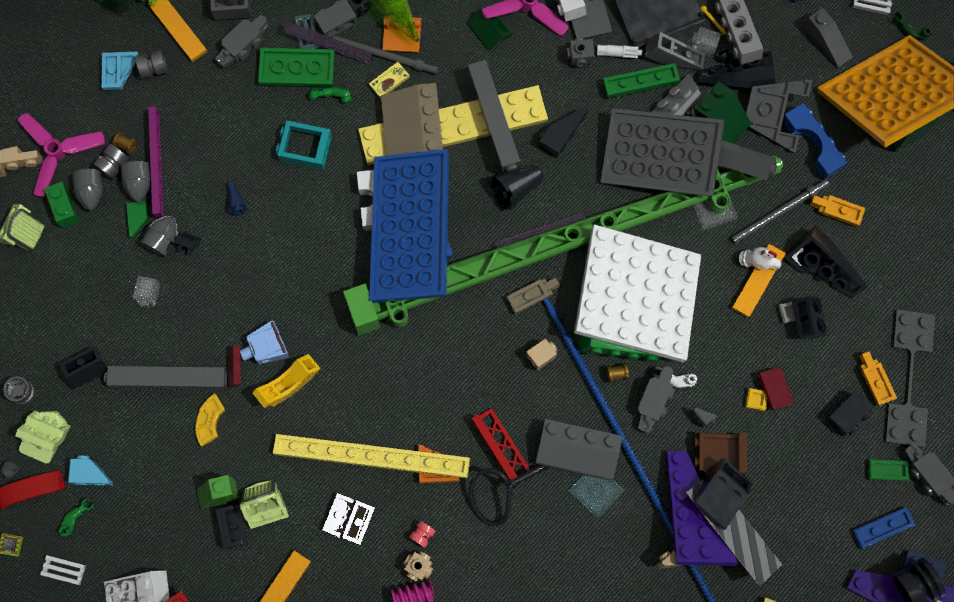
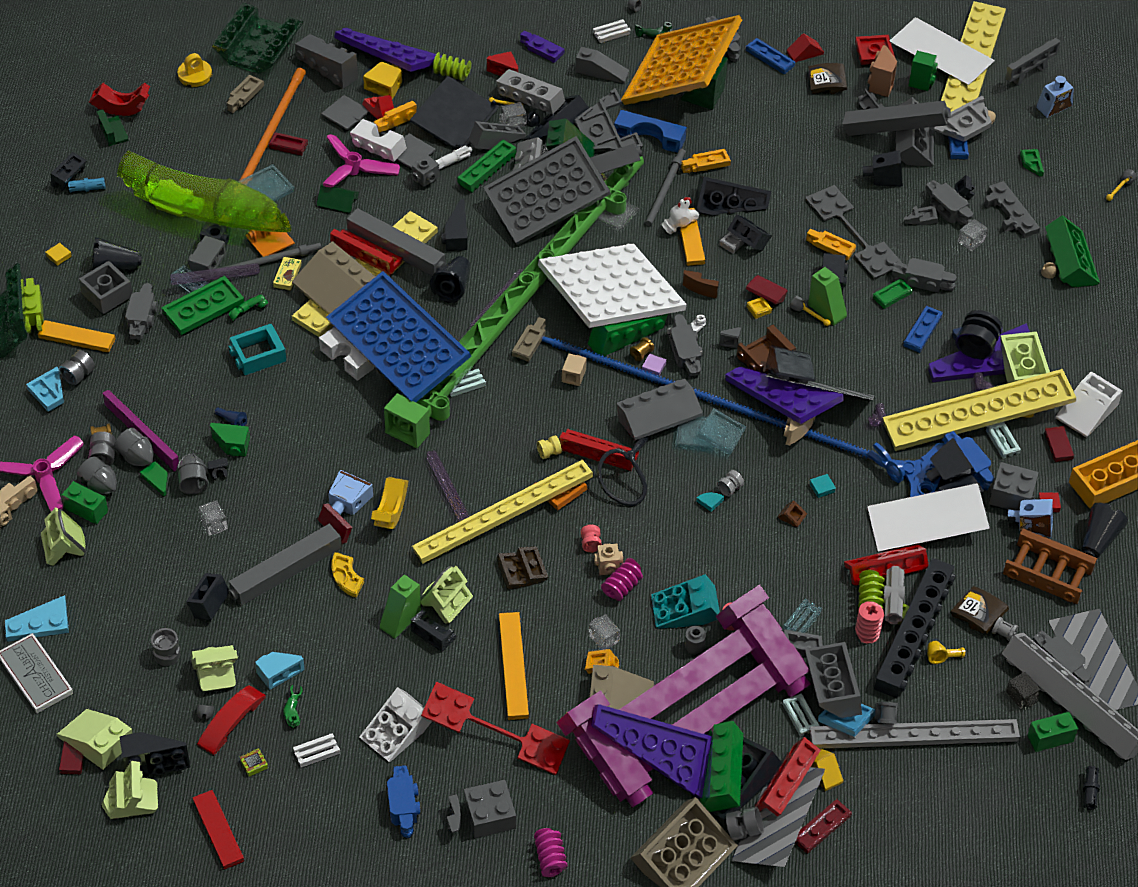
camera: 40 degrees left, 25 degrees down
(218, 223) = (231, 438): none -> green slope
(351, 395) = (447, 485): none -> clear purple axle
(451, 299) = (470, 377): none -> light aqua tile
(459, 105) = (366, 251): none -> red fence
(460, 417) = (549, 447): none -> light yellow wheel
(551, 568) = (710, 500): none -> teal tile
(585, 565) = (731, 482): none -> light grey wheel
(615, 508) = (721, 431): none -> clear light blue tile
(616, 394) = (654, 364): none -> lavender tile
(720, 335) = (695, 283): none -> reddish brown slope
(761, 593) = (877, 418): none -> clear purple arm
(793, 424) = (798, 304): none -> hinge
(819, 440) = (827, 296): none -> bright green slope

